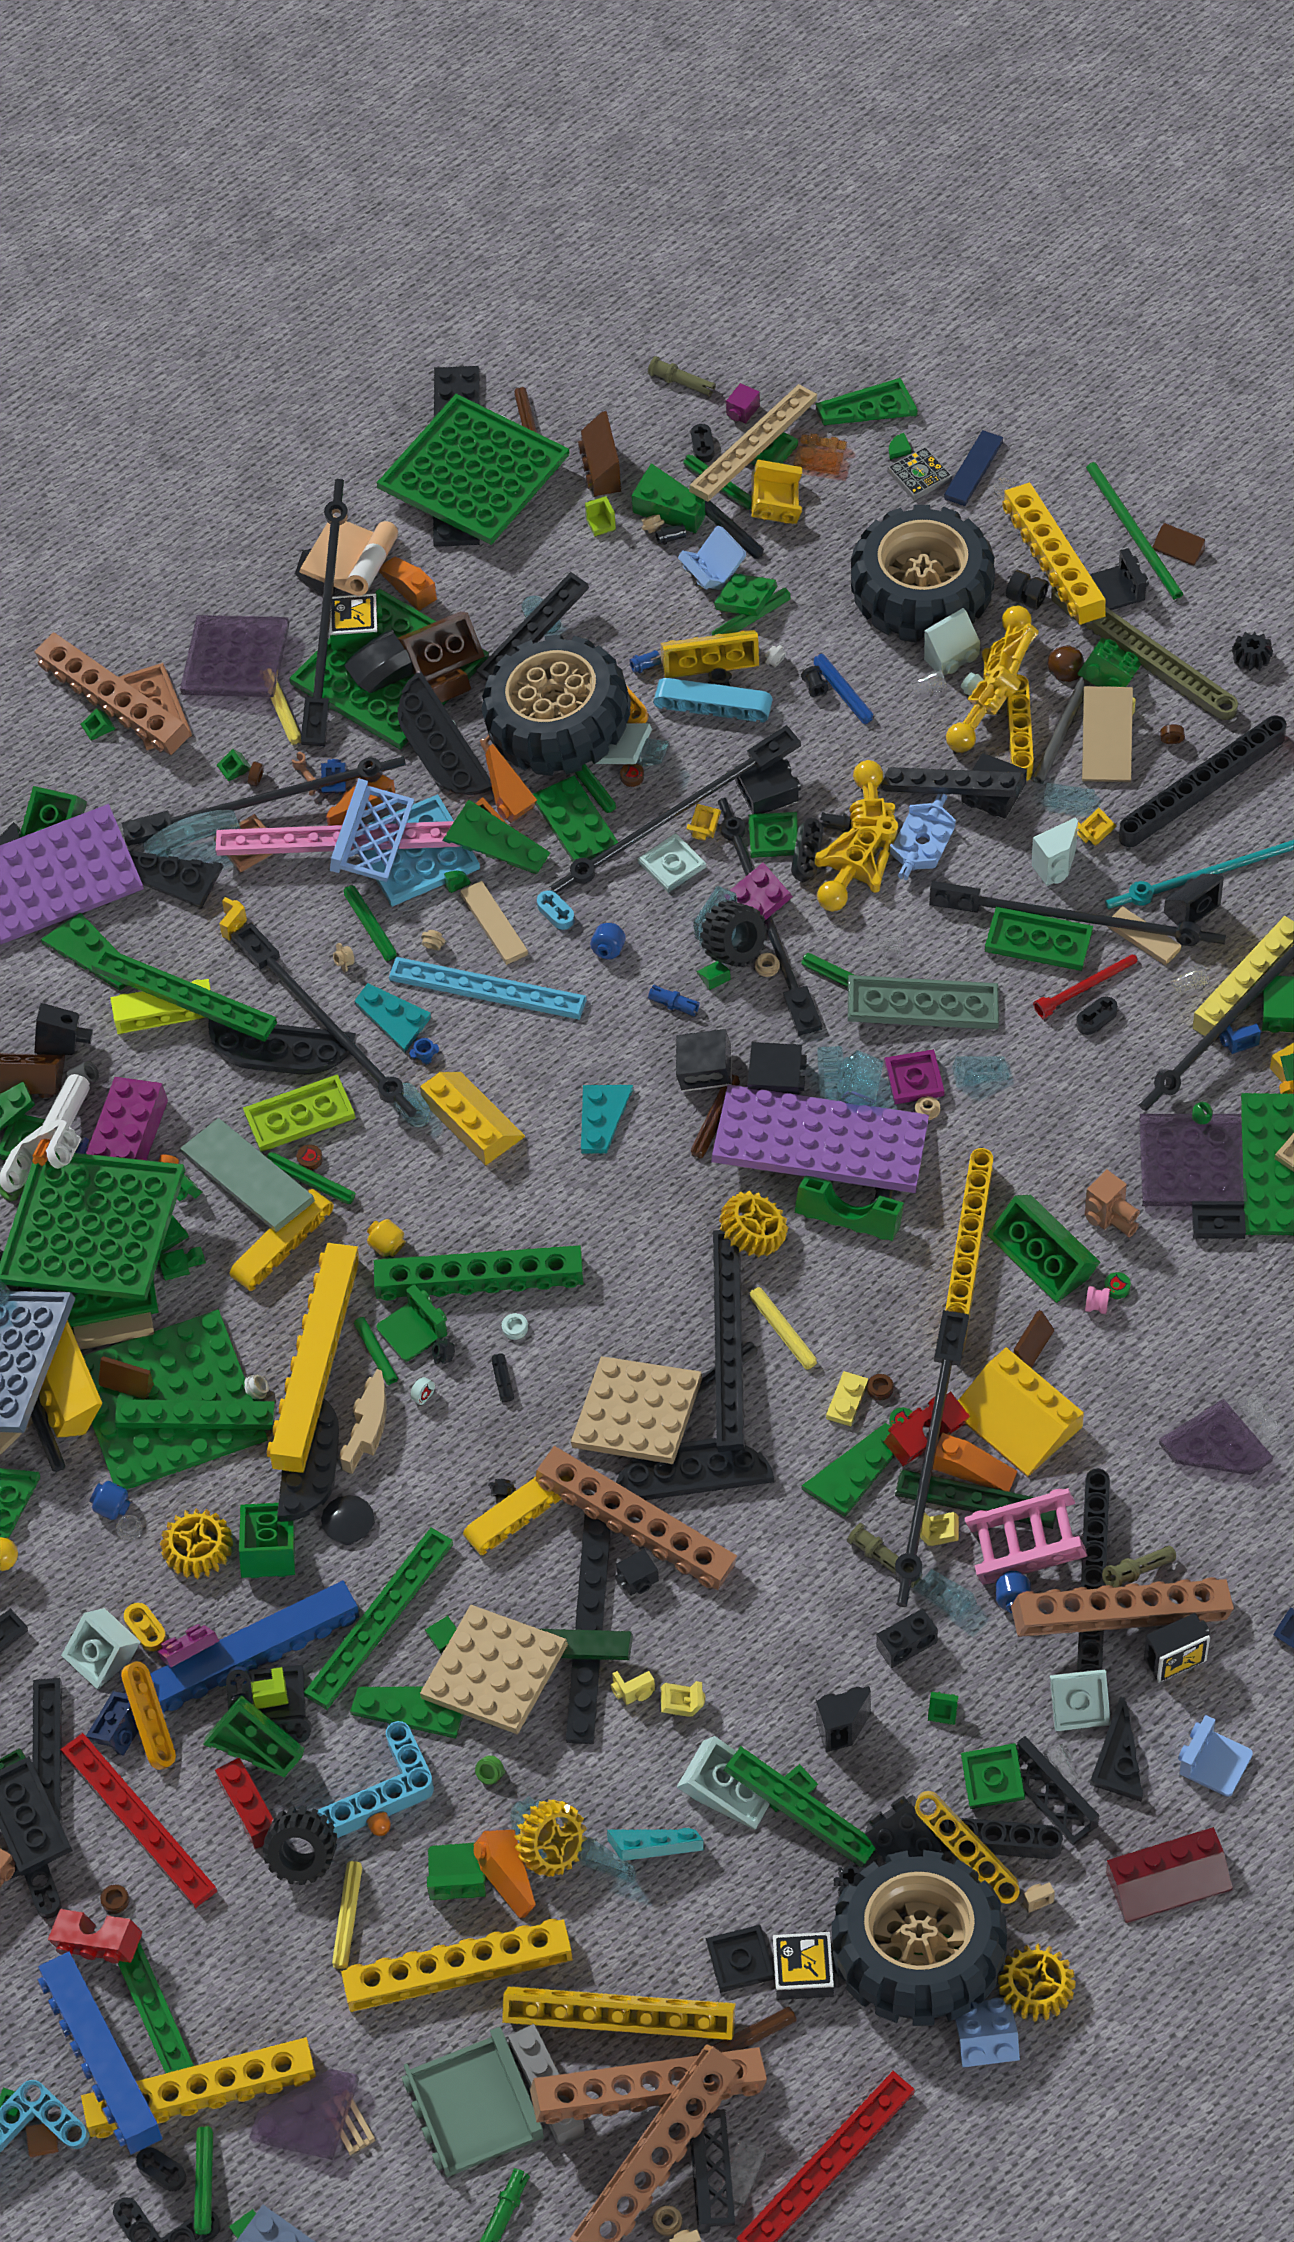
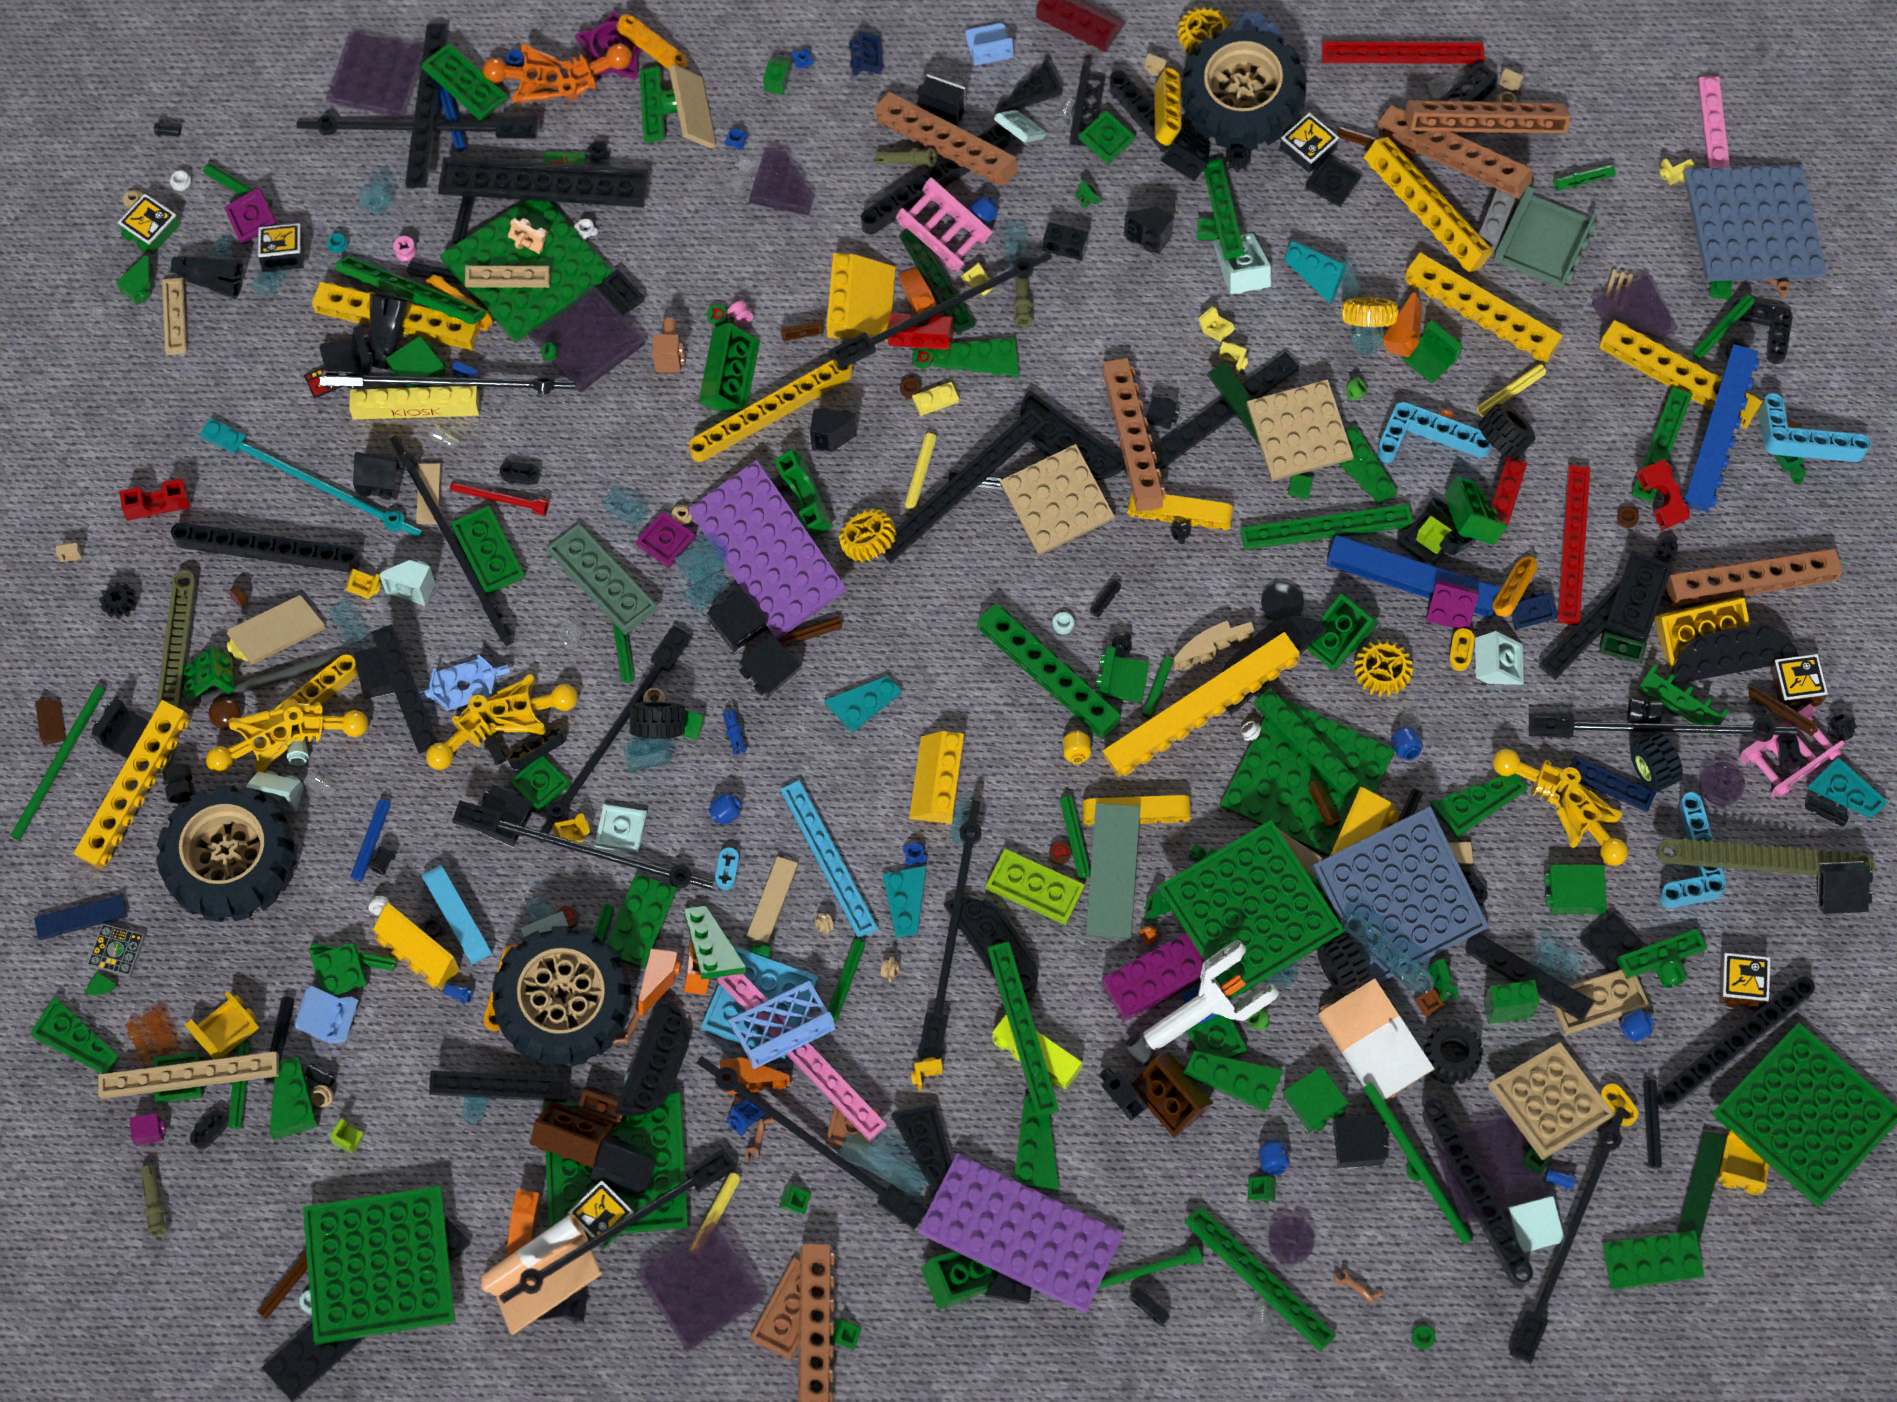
camera: 135 degrees left, 10 degrees up
(255, 773) = (791, 1172): reddish brown tile -> none
(422, 1390) = (1159, 632): light aqua tile -> none
(600, 456) = (288, 1182): reddish brown slope -> none
(762, 891) = (603, 744): magenta plate -> none
(894, 1272) = (831, 428): none -> black slope

